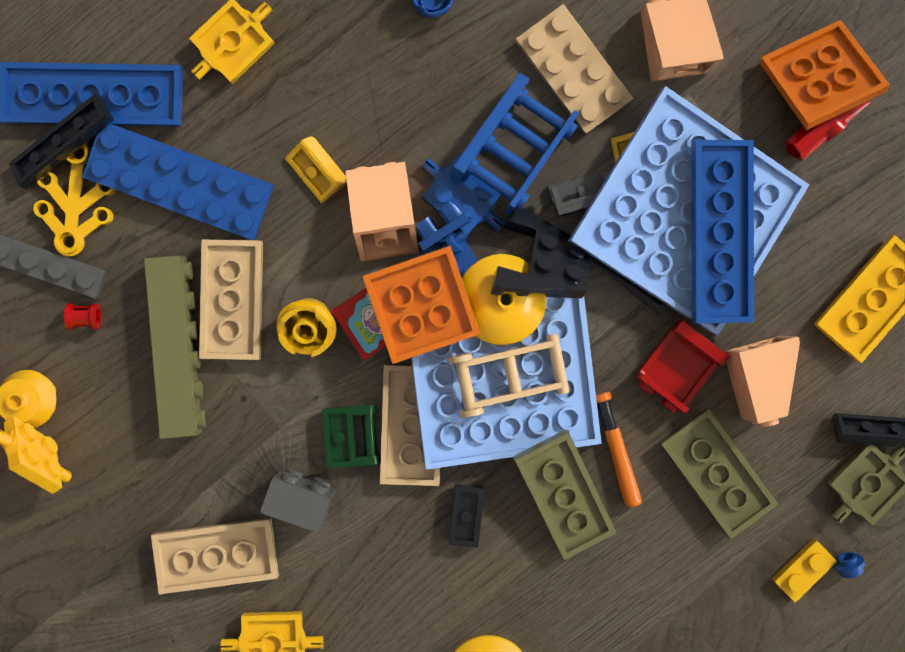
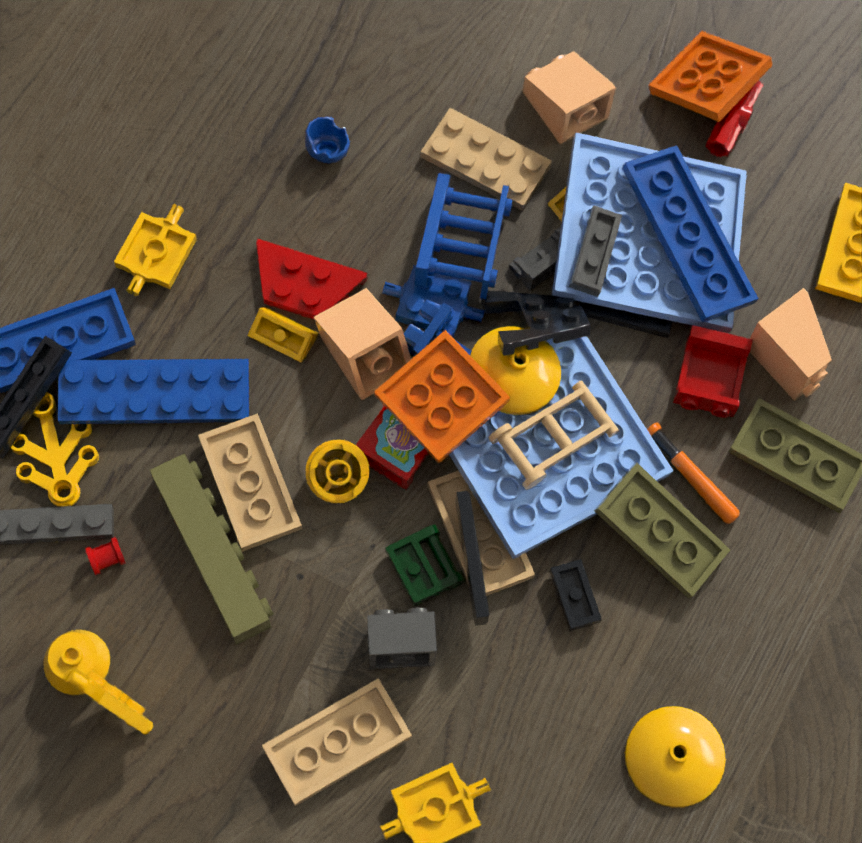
camera: 25 degrees left, 20 degrees down
(354, 125) = (303, 281): none -> red wing
(388, 455) = (472, 558): none -> black tile
(626, 216) = (595, 251): none -> dark grey tile

